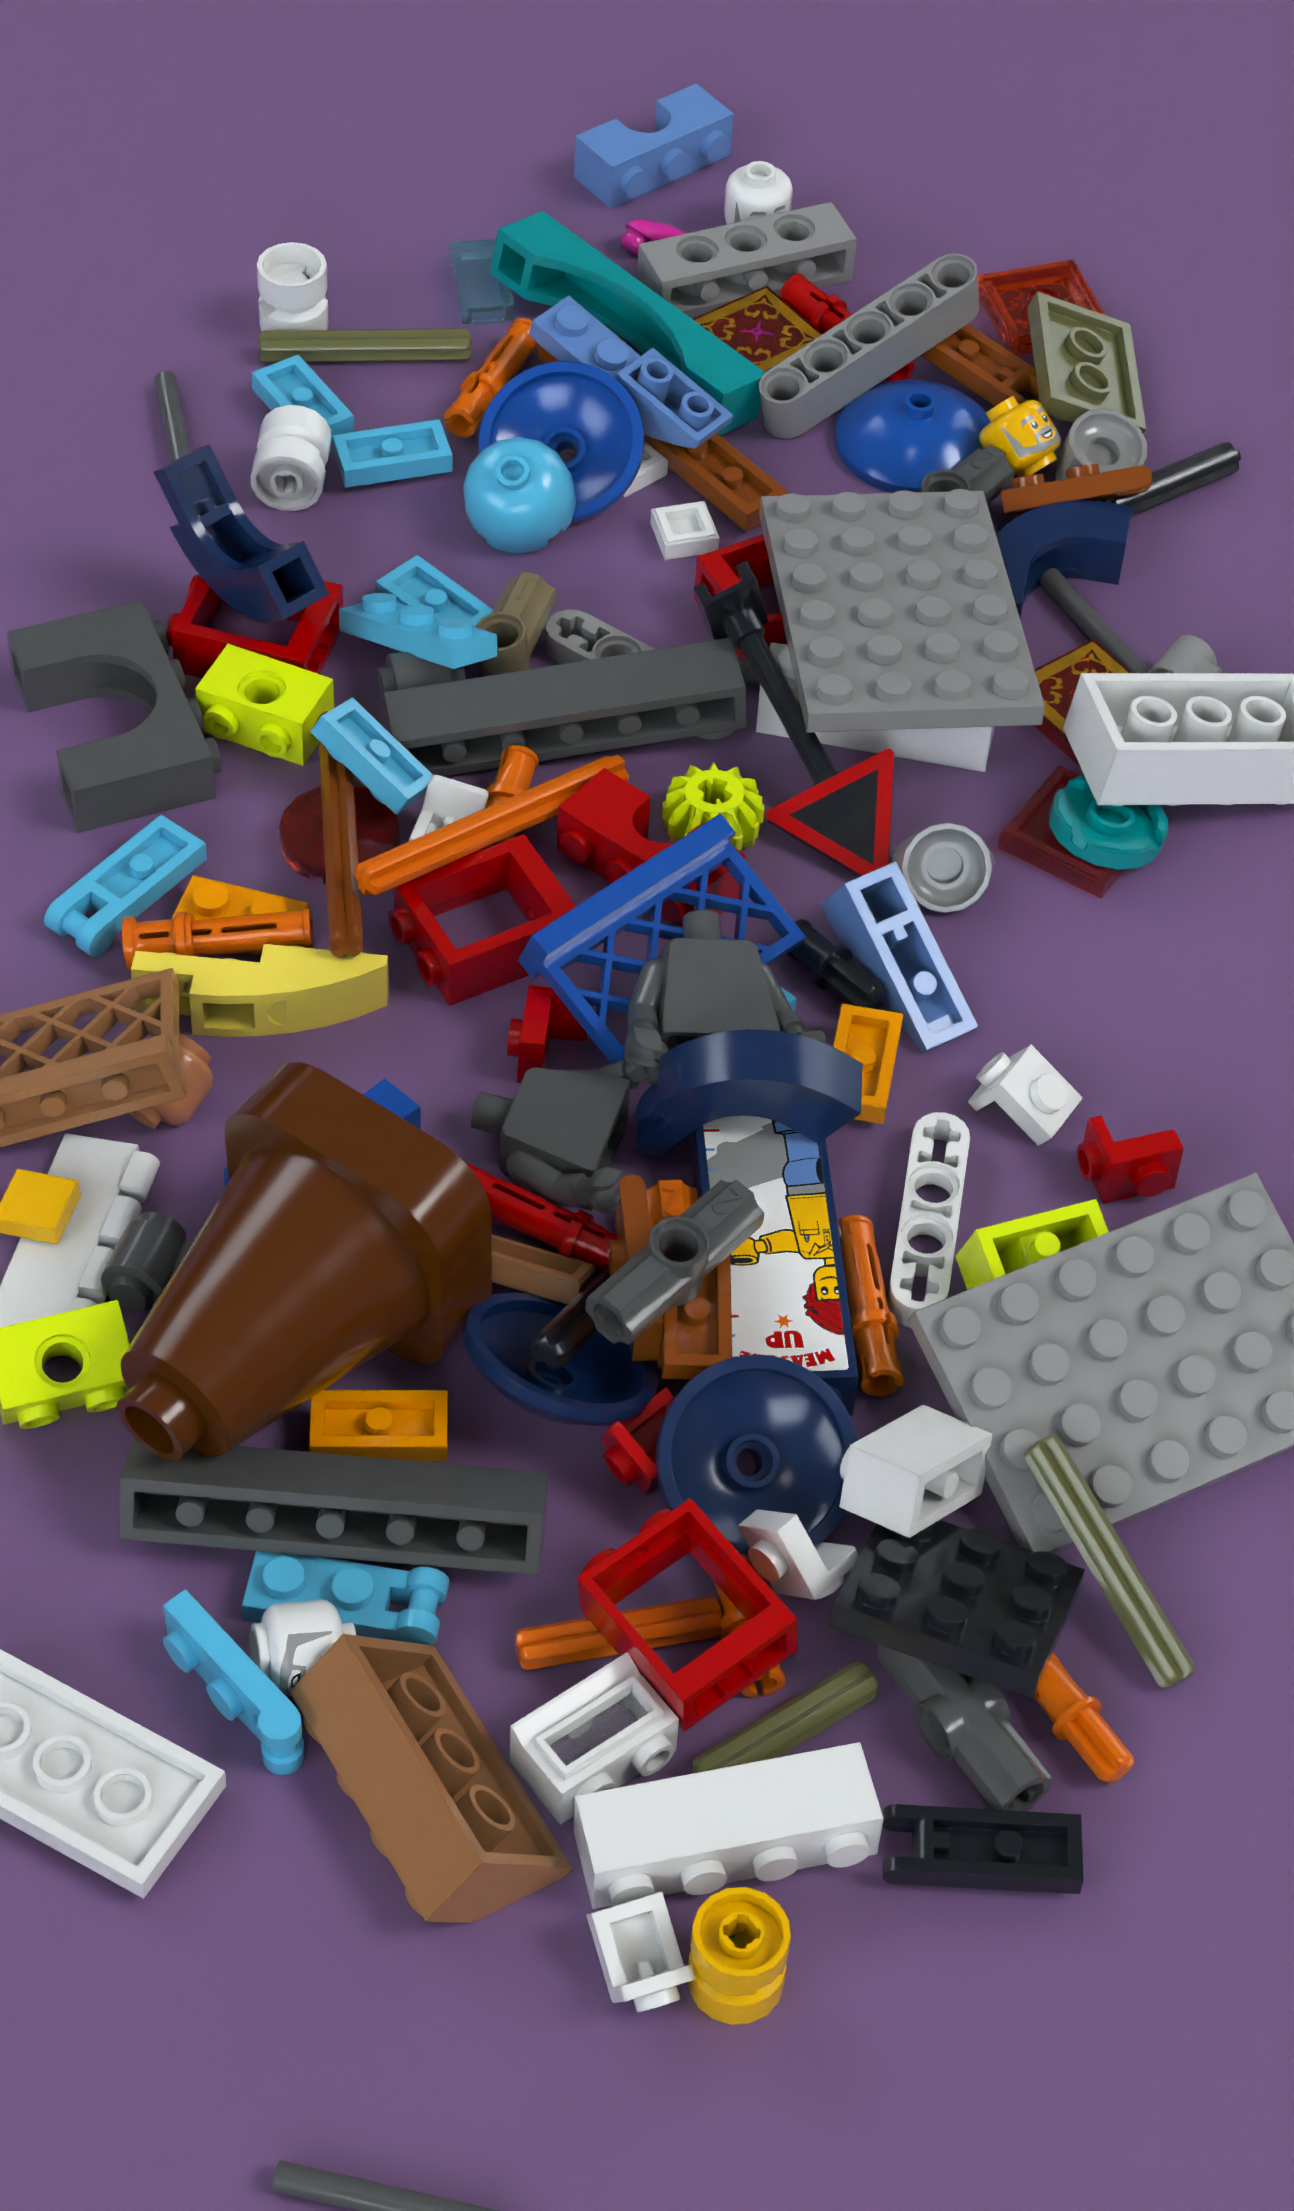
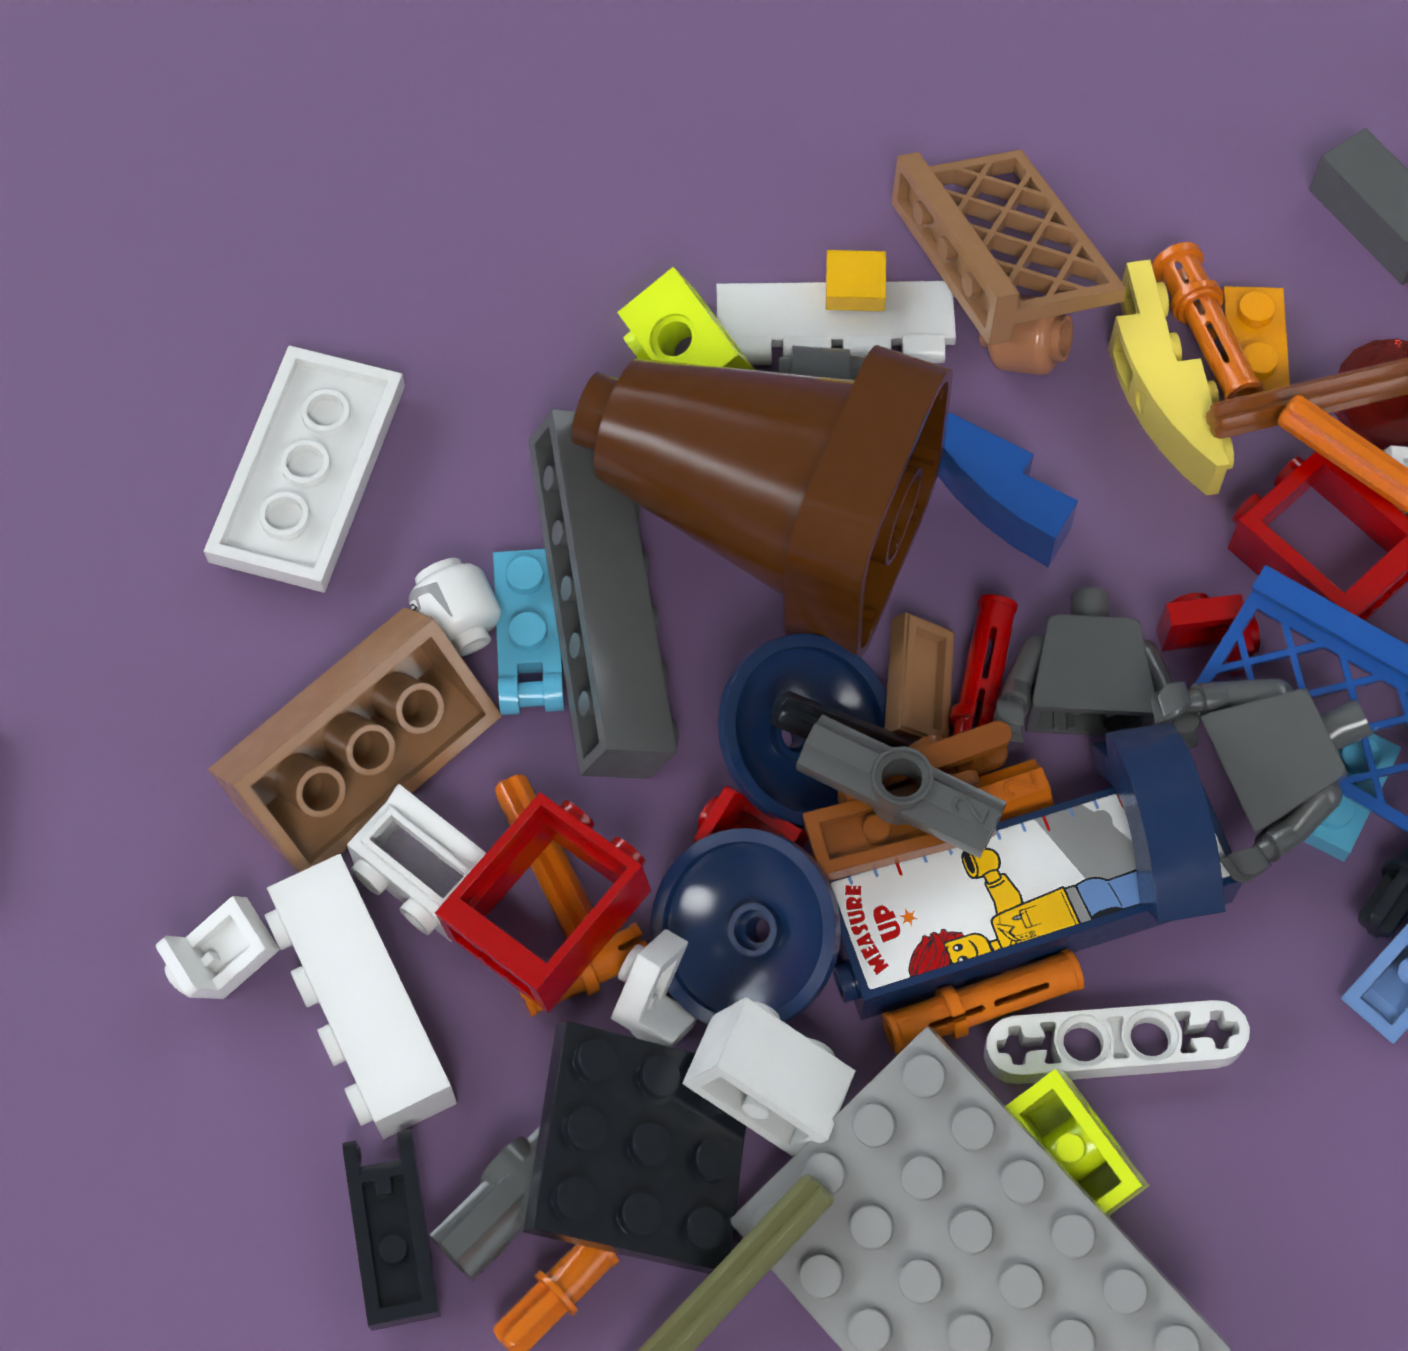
camera: 80 degrees right, 15 degrees up
(125, 884) = (1251, 239): medium azure plate -> none
(234, 1682) = (438, 535): medium azure plate -> none
(381, 1424) = (707, 609): light orange plate -> none
(739, 1955) = (223, 1029): yellow wheel -> none
(794, 1720) = (479, 1024): olive axle -> none
(873, 1040) = (1289, 935): light orange plate -> none
(1027, 1091) = (1310, 1107): white bracket -> none
(1129, 1166) = (1247, 1238): red bracket -> none

